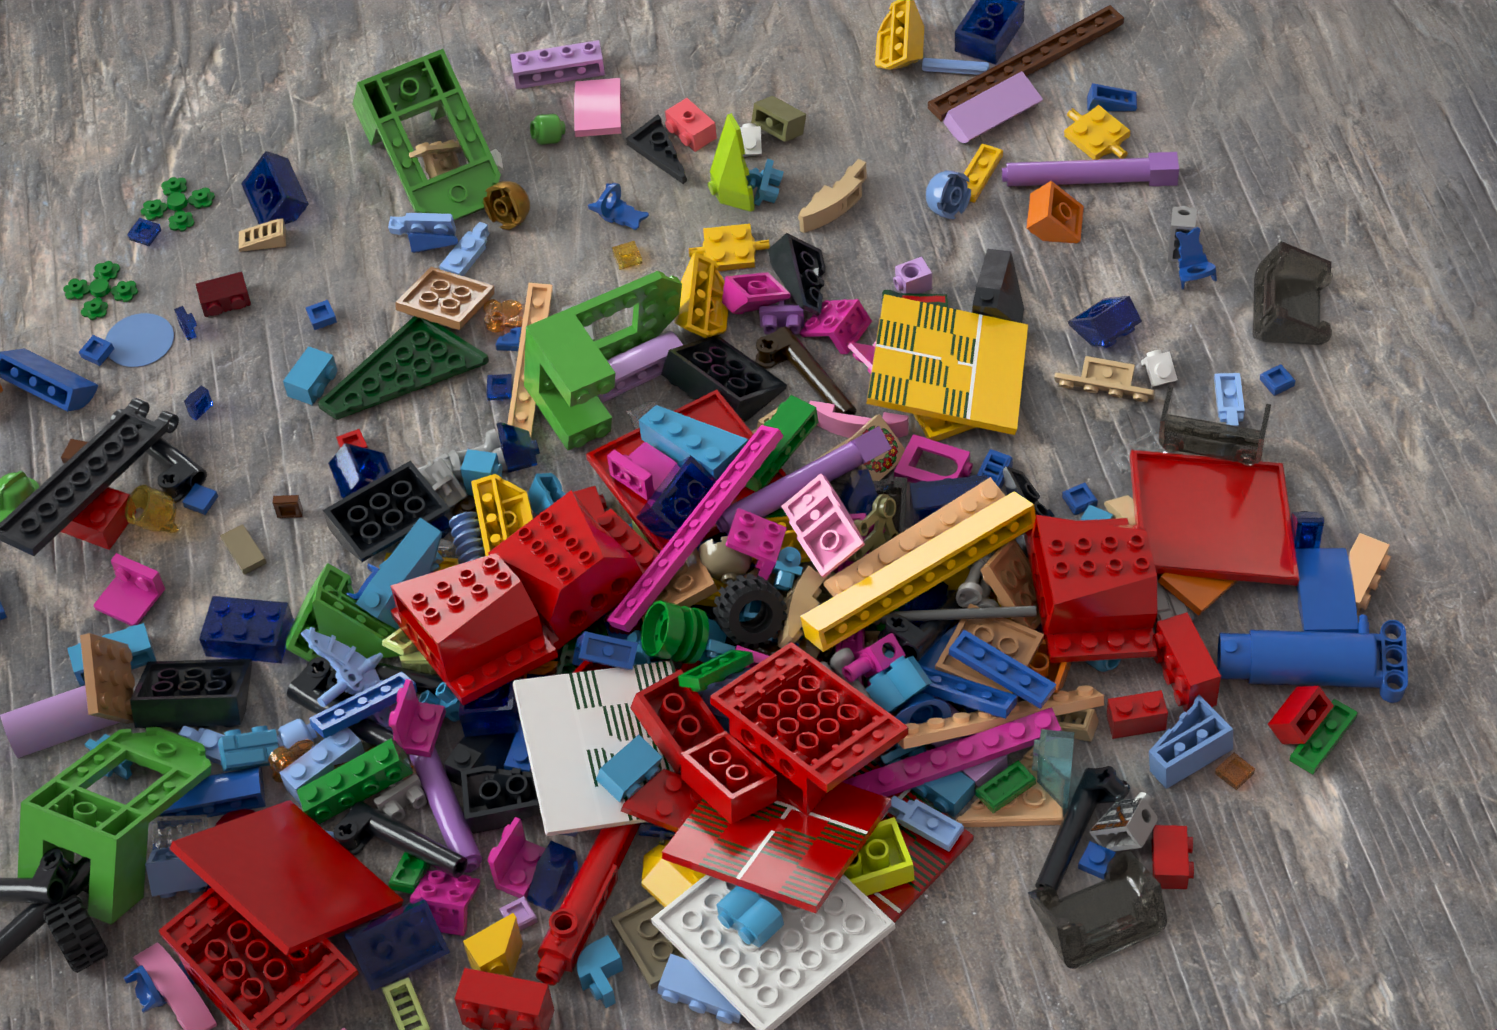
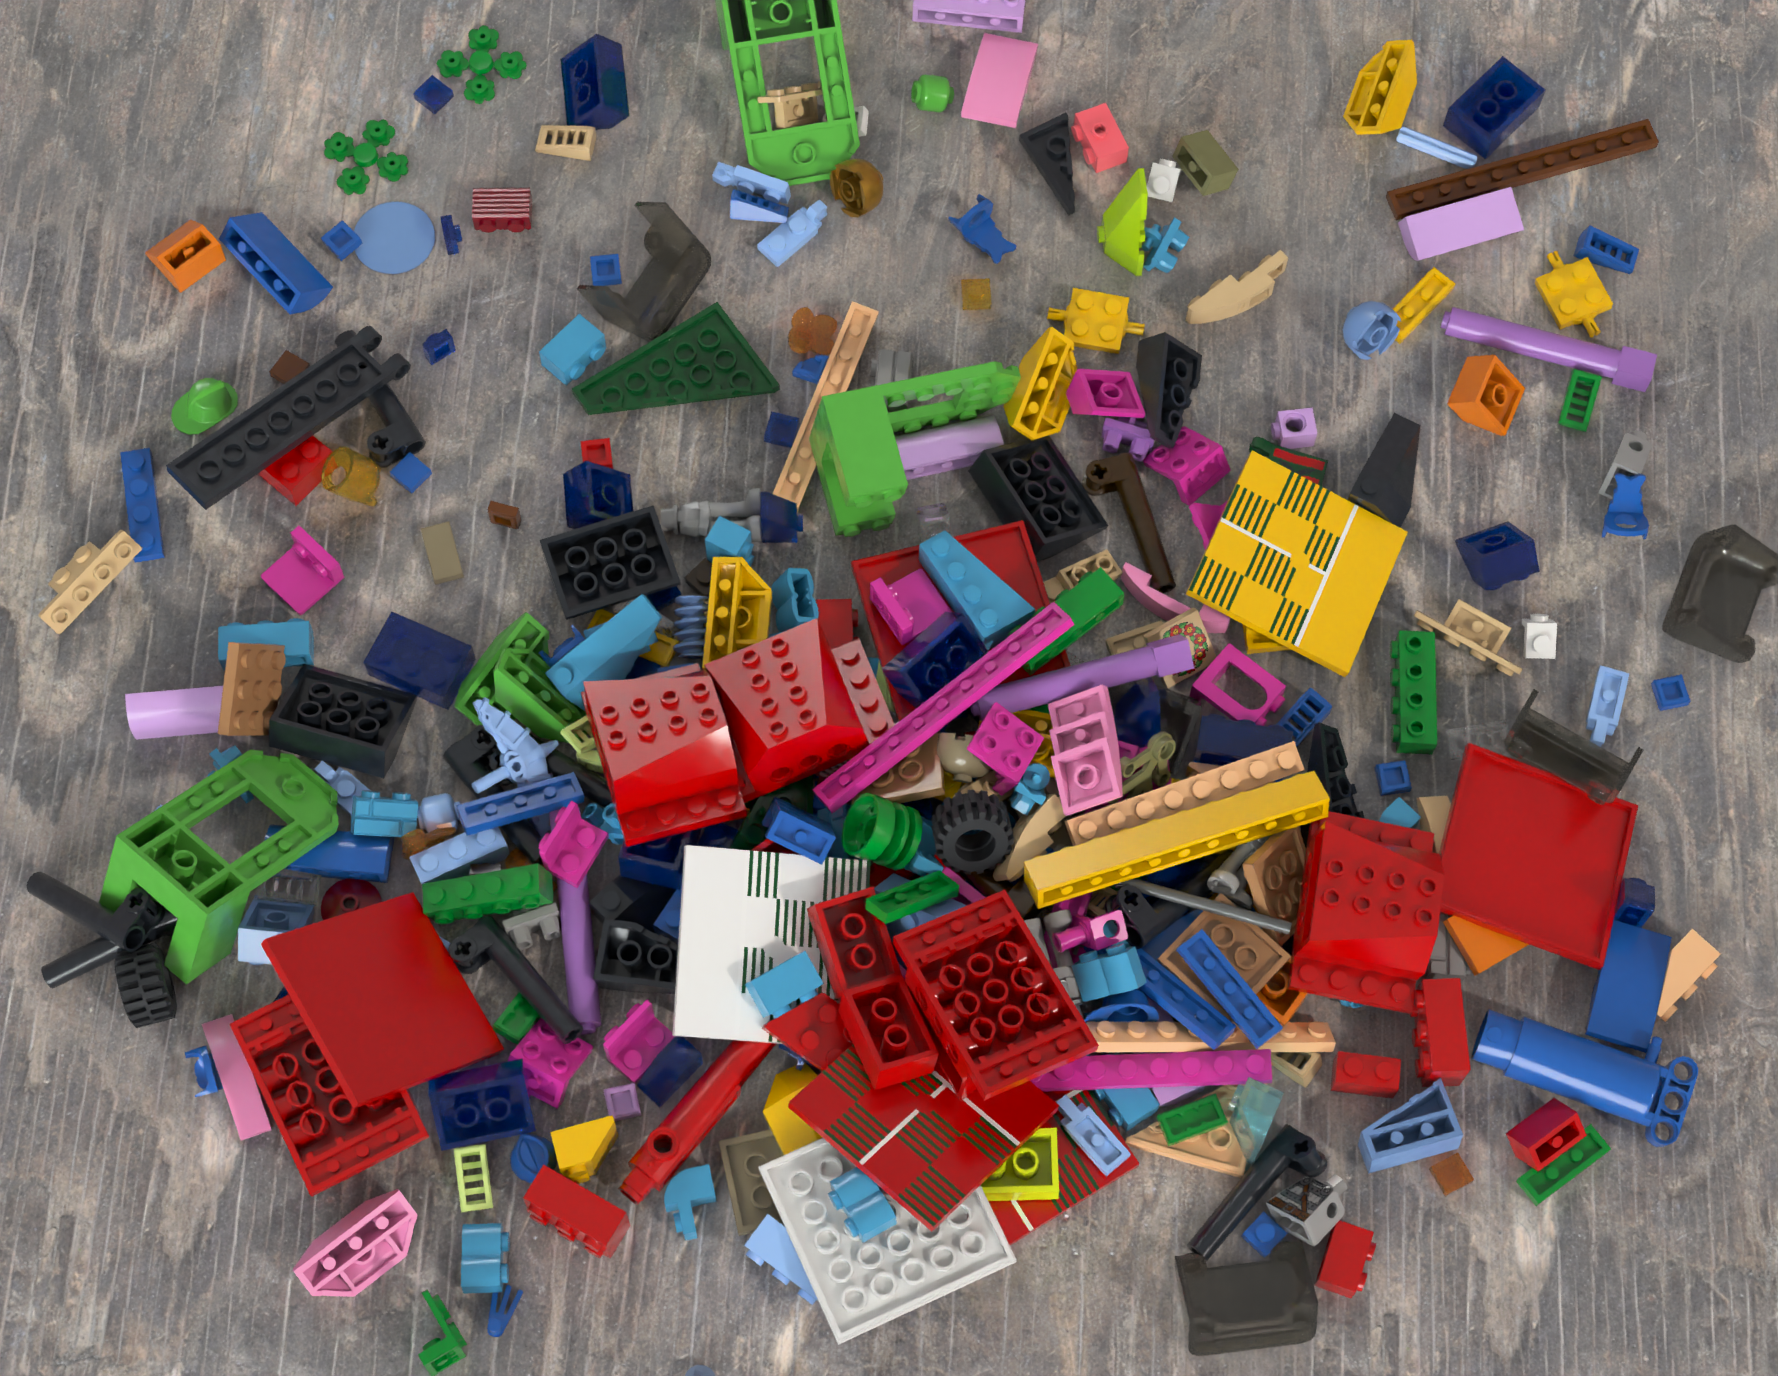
camera: 10 degrees right, 15 degrees up
(373, 310) = (665, 283): none -> clear smoke windscreen
(444, 482) = (683, 544): light grey hips -> none
(445, 298) = (751, 293): medium nougat plate -> none
(447, 978) = (530, 1155): none -> blue hat
(1074, 432) = (1414, 692): none -> green brick
(1128, 185) = (1583, 378): none -> green slope

